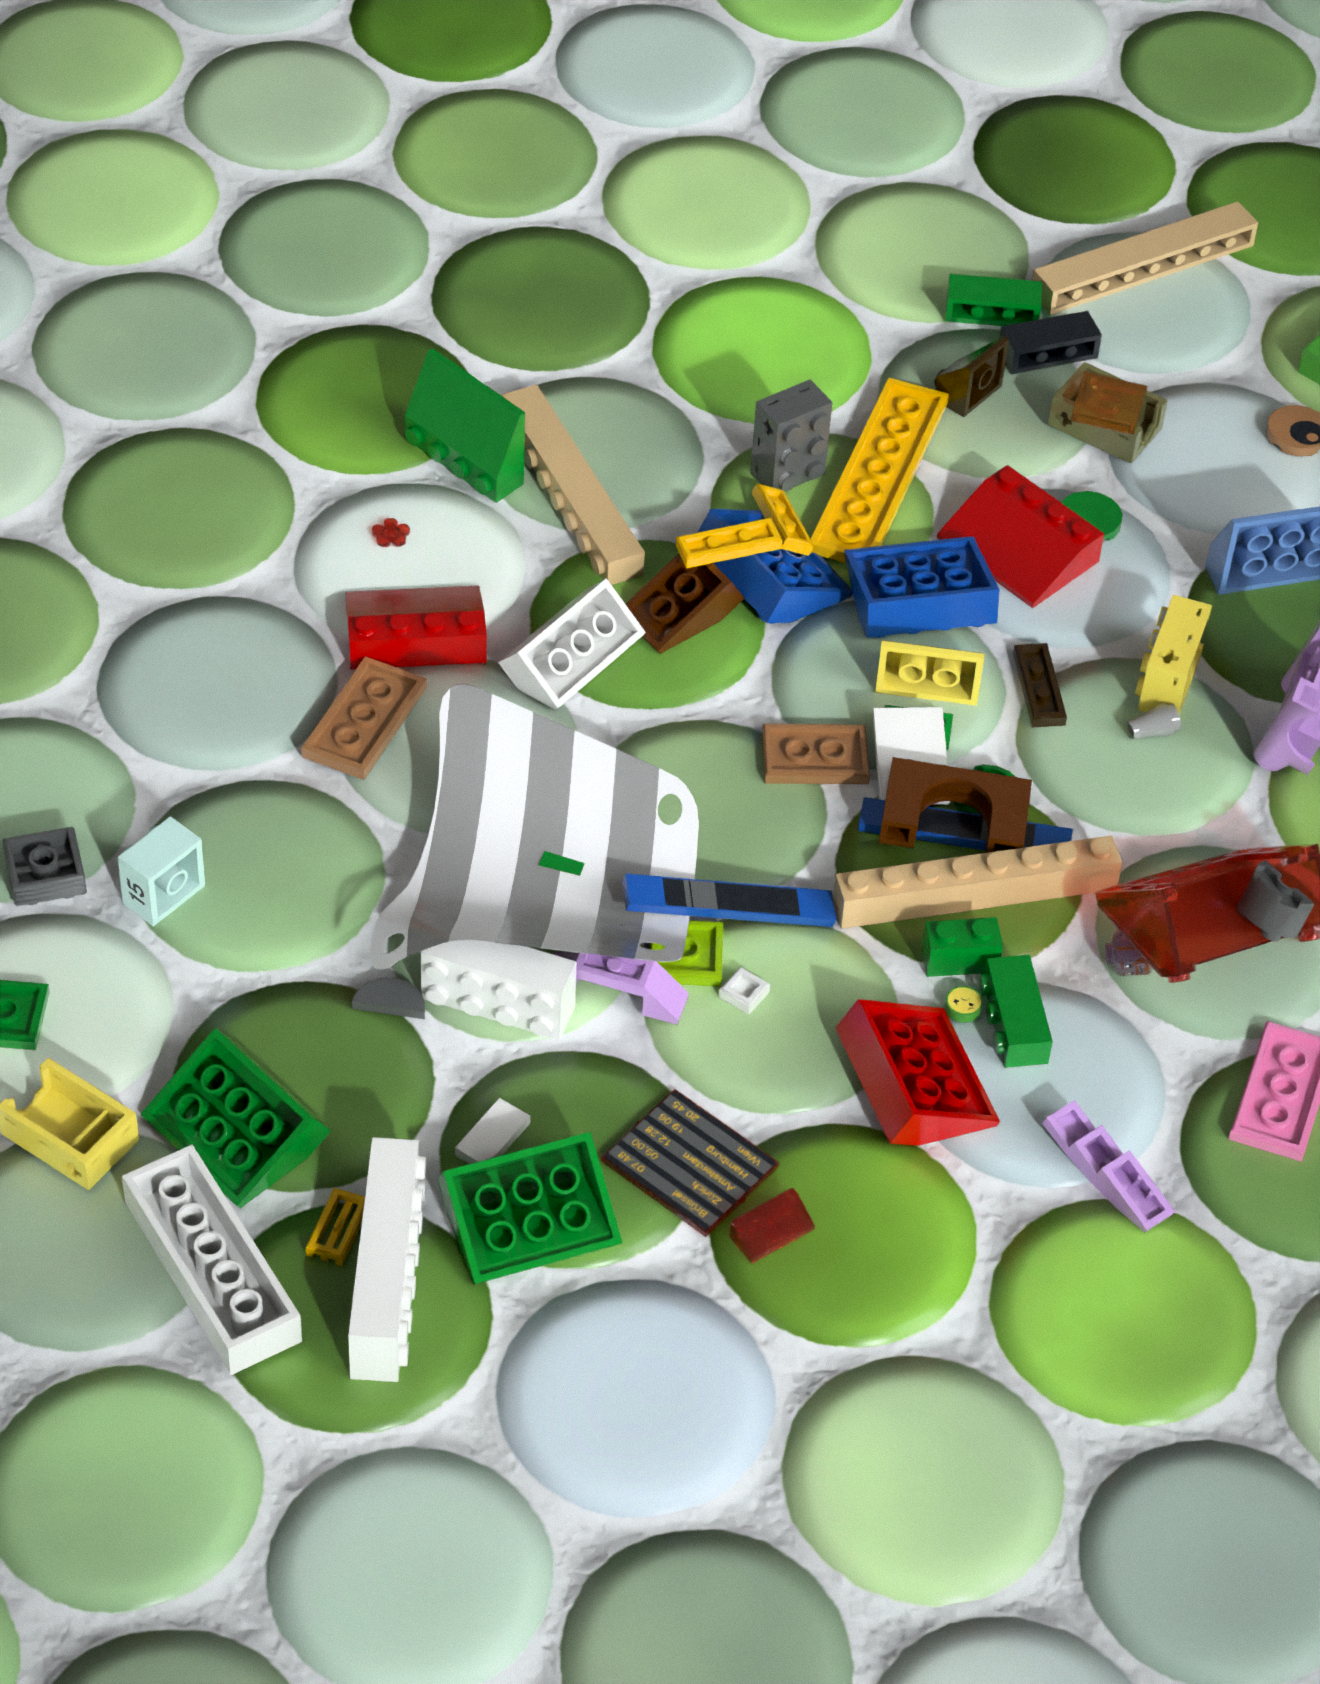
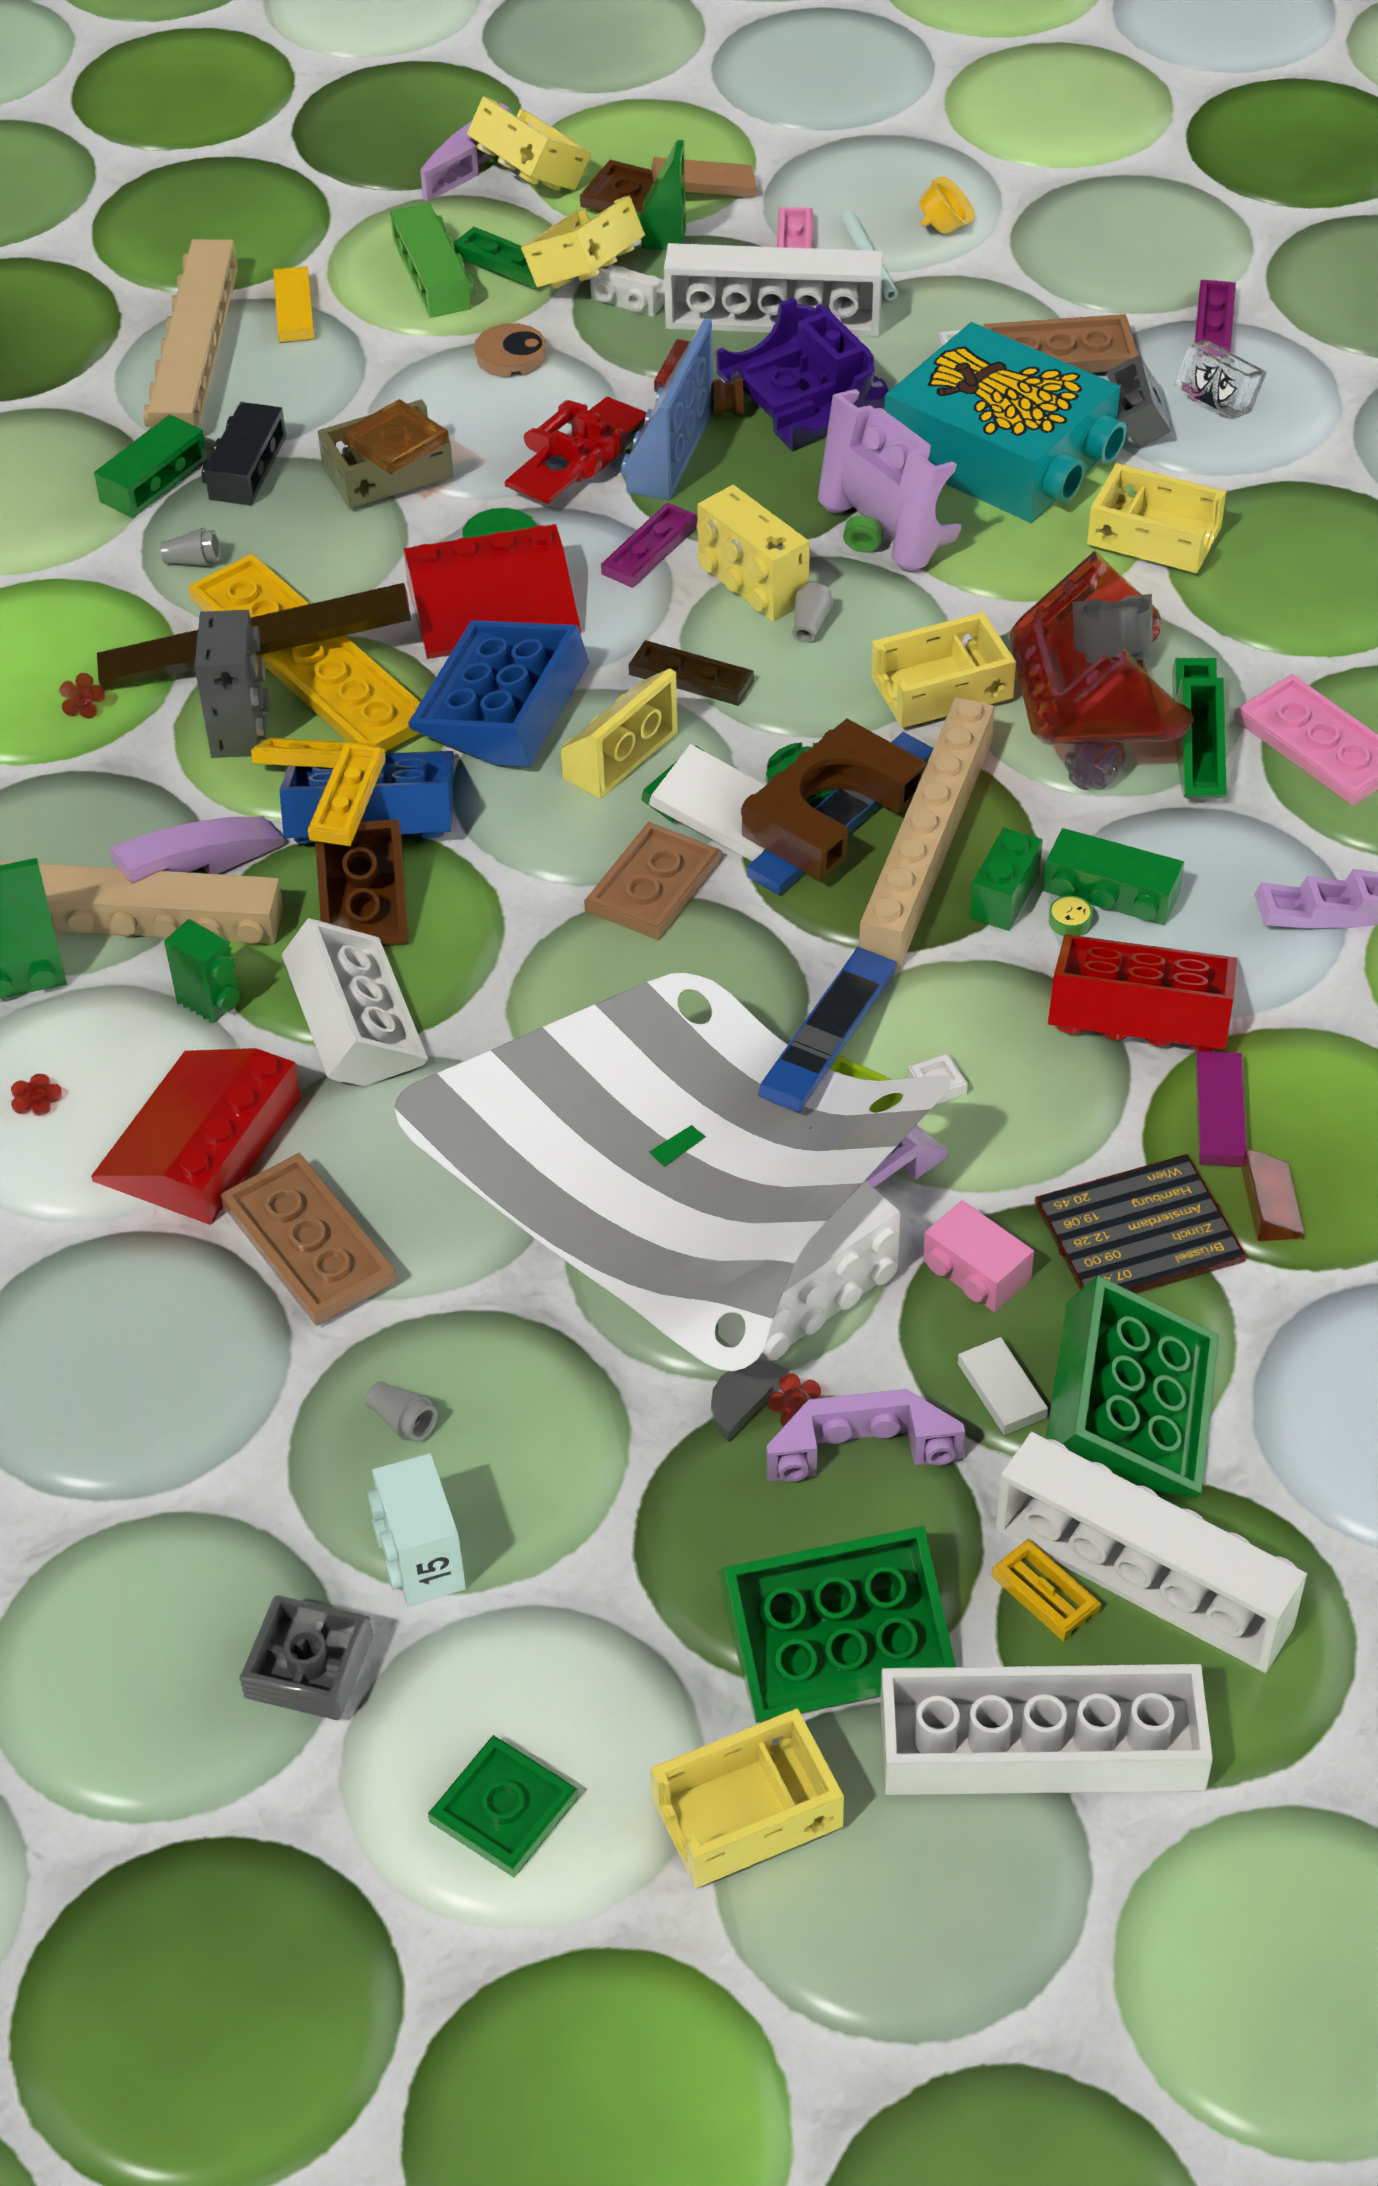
camera: 55 degrees left, 0 degrees up
(258, 830) = (405, 1412): none -> light grey cone
(365, 1040) = (932, 1433): none -> lavender slope
(401, 1026) = (794, 1396): none -> clear red plant
(534, 553) = (202, 970): none -> green brick
(589, 1073) = (978, 1256): none -> bright pink brick
(634, 492) = (205, 844): none -> lavender slope
(745, 379) = (81, 696): none -> clear red plant
(838, 1165) = (1220, 1108): none -> magenta tile
(878, 442) = (277, 632): none -> dark brown tile
(929, 361) = (193, 548): none -> light grey cone
(973, 377) = (248, 521): dark brown slope -> none
(1143, 601) = (649, 545): none -> magenta tile
(1149, 820) = (930, 667): none -> light yellow piece
(1192, 510) = (563, 458): none -> red piece
(1216, 1001) = (1202, 748): none -> green slope
(1238, 291) = (293, 304): none -> yellow tile
(1264, 714) = (863, 533): none -> bright green tile

